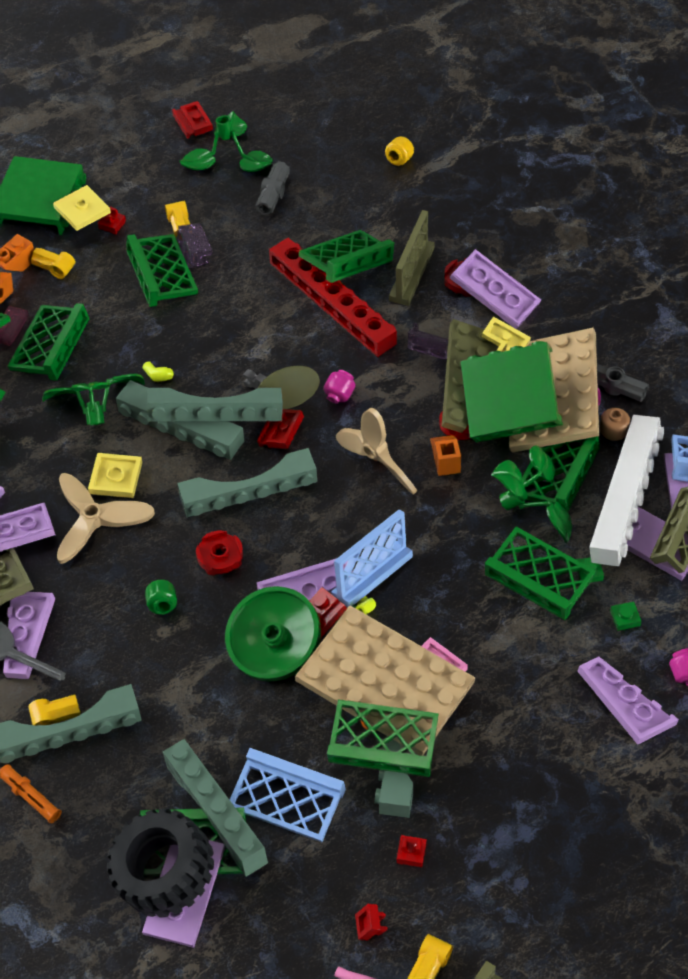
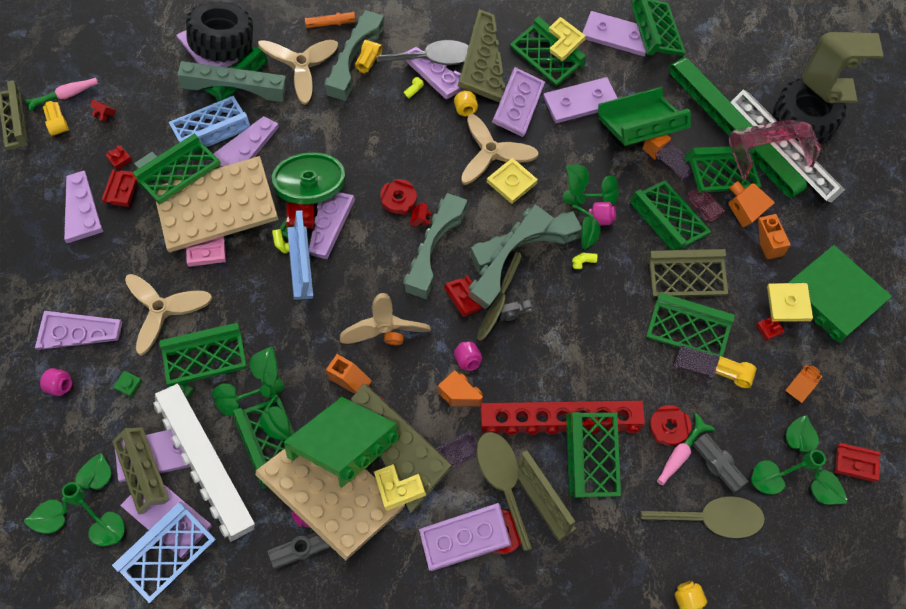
camera: 125 degrees right, 10 degrees up
(48, 572) = (465, 103): none -> yellow head
(57, 264) = (746, 263): yellow piece -> none
(61, 635) = (416, 85): none -> neon yellow arm
(93, 375) = (603, 212): none -> dark pink head
(96, 310) = (684, 258): none -> olive fence
(125, 767) = (311, 57): none -> tan piece
(149, 174) = (804, 383): none -> orange slope
(160, 597) = (393, 145): green head -> none
(226, 518) = (419, 215): none -> red tile
(267, 240) = (664, 435): none -> red plate
(285, 214) = (682, 450): none -> bright pink piece
(296, 736) = (247, 143): none -> lavender wing
(316, 169) = (723, 516): none -> olive piece
(379, 372) = (459, 392): none -> orange slope
(422, 300) = (501, 471): none -> olive piece
(445, 807) = (120, 188): none -> red plate
(507, 824) = (80, 209): none -> lavender wing
(549, 644) = (173, 305): none -> tan piece
(614, 424) = (263, 508): medium nougat head -> none

